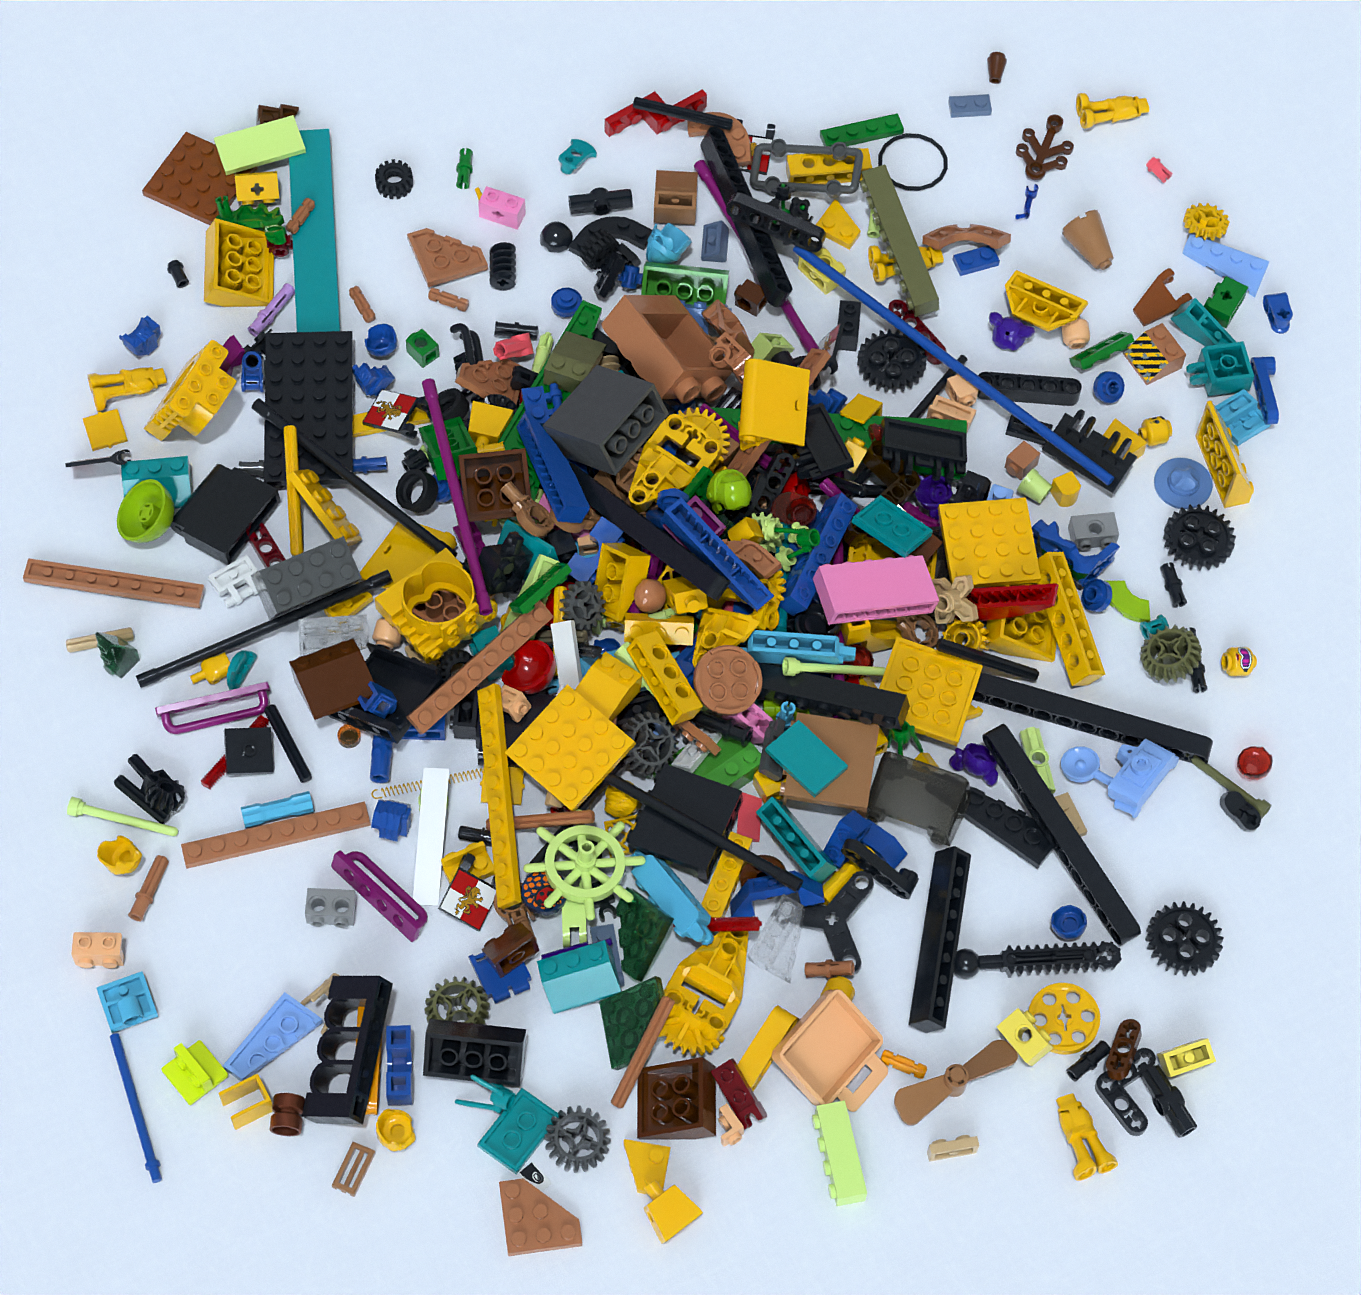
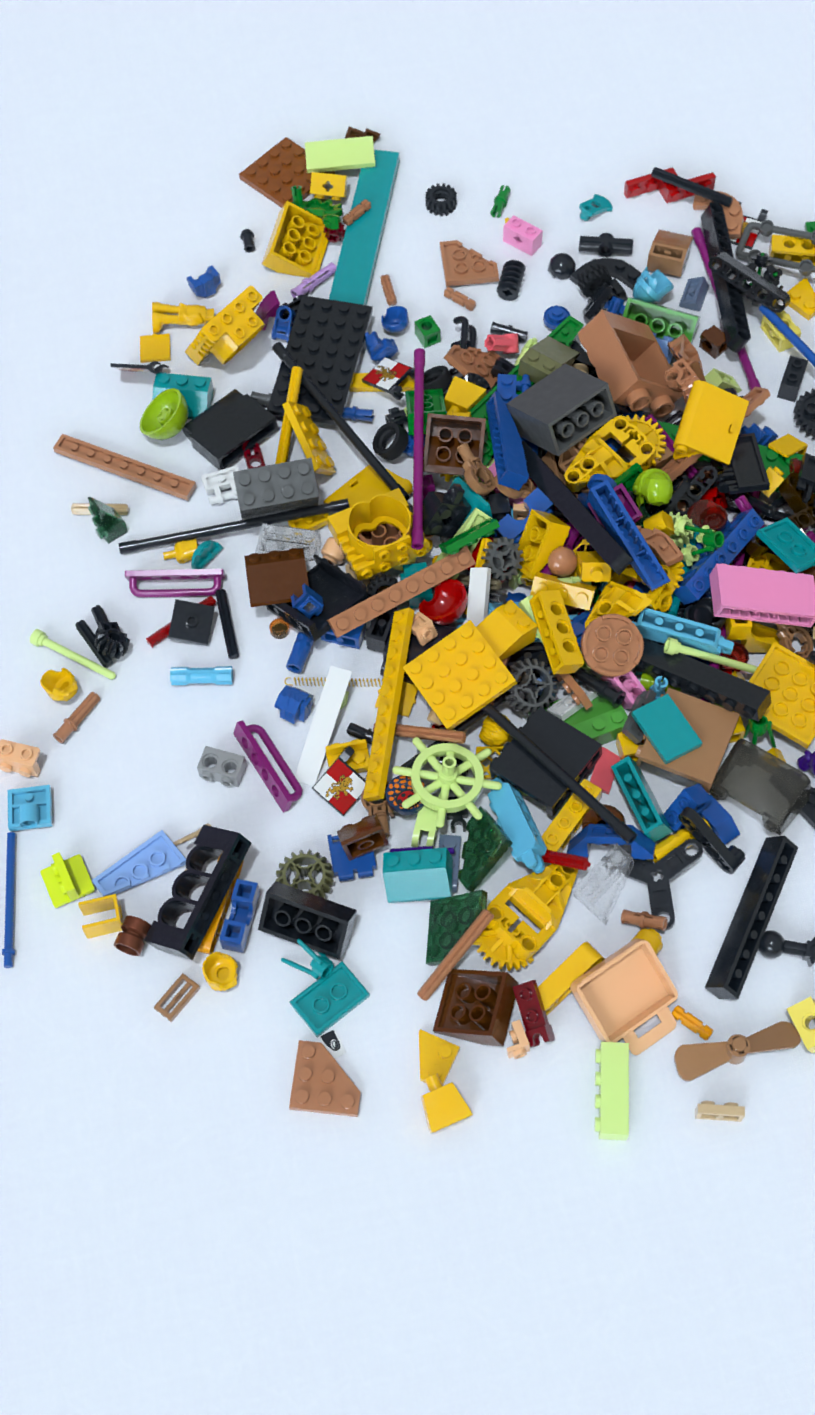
camera: 20 degrees right, 0 degrees up
(275, 835) = (194, 696): nougat plate -> none
(586, 1142) = (386, 1025): dark grey gear -> none
(831, 344) = (774, 389): flag -> none

